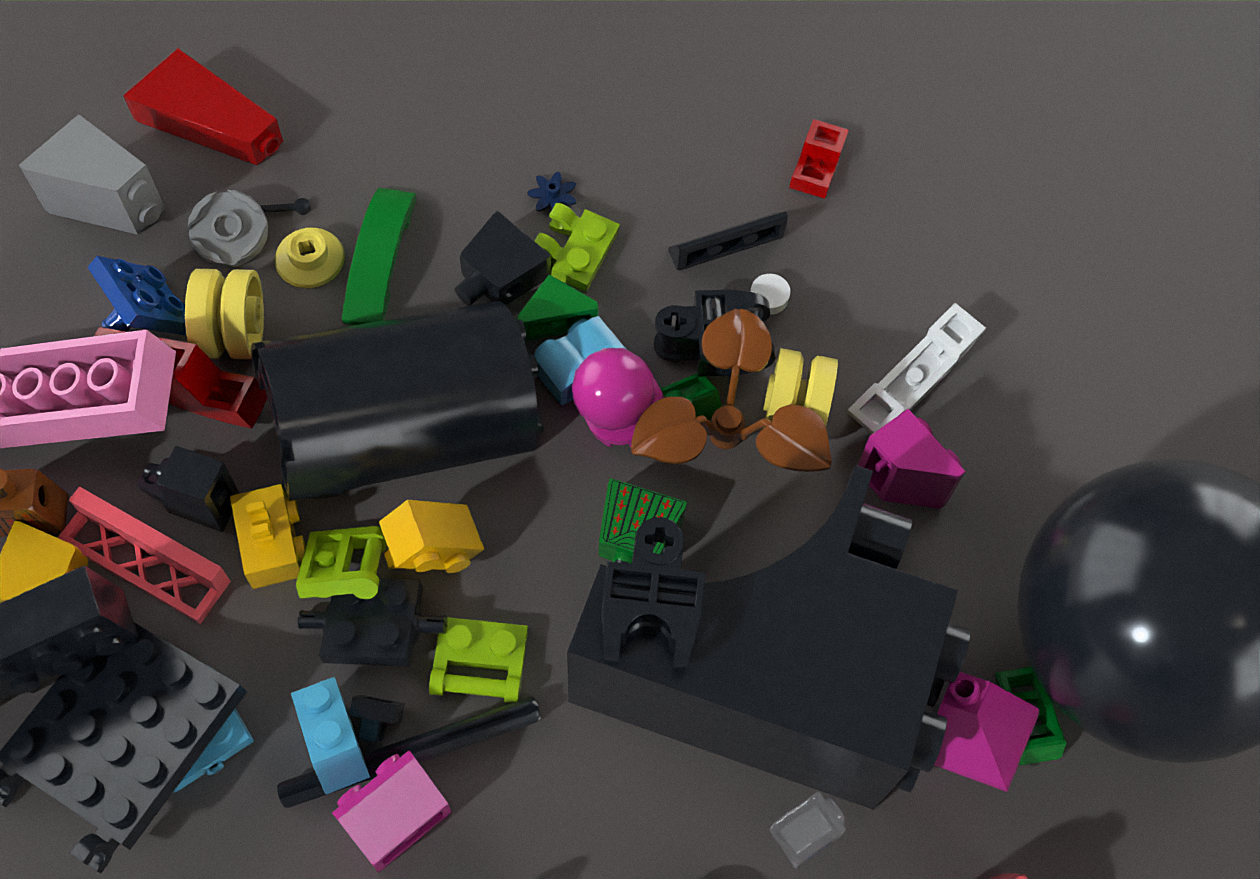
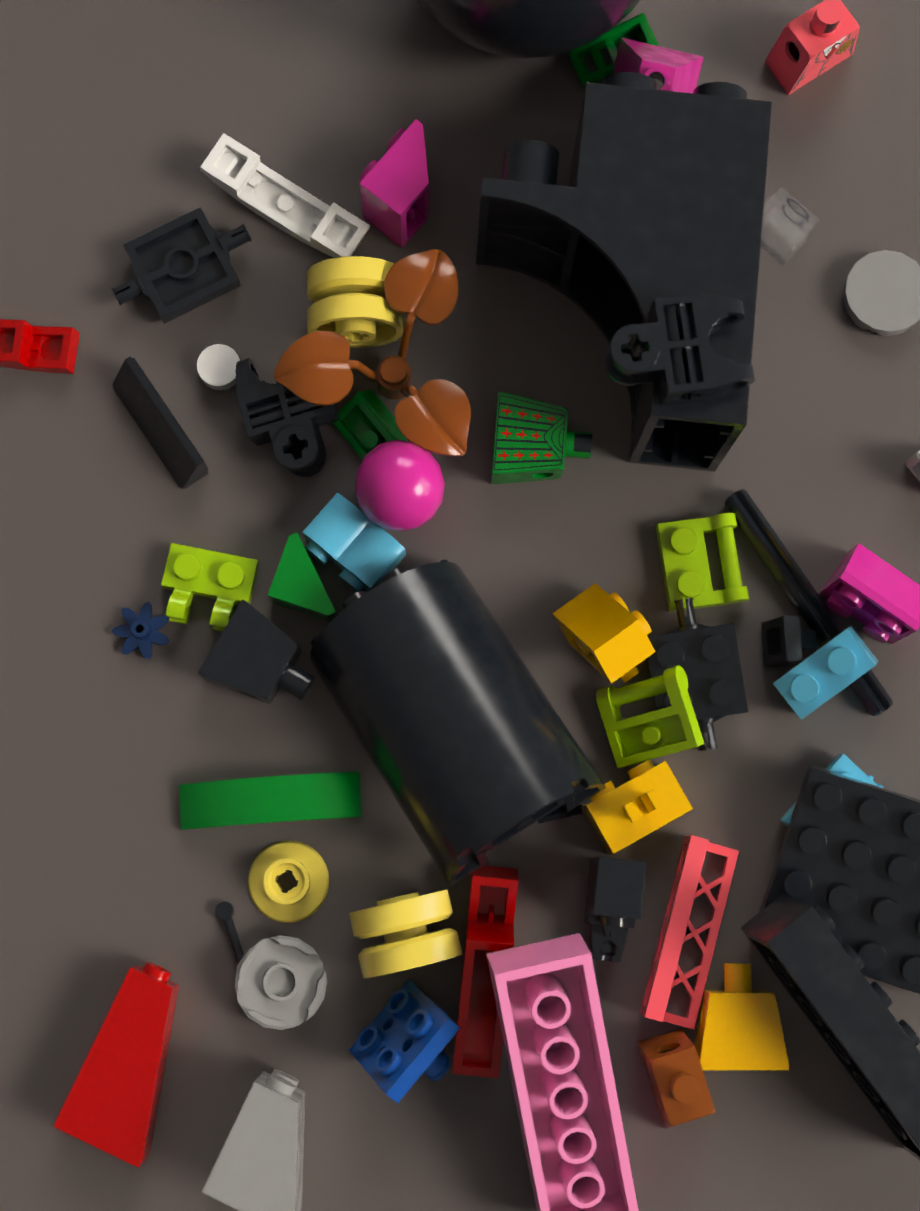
camera: 105 degrees left, 15 degrees up
(869, 281) = (182, 265): none -> black plate

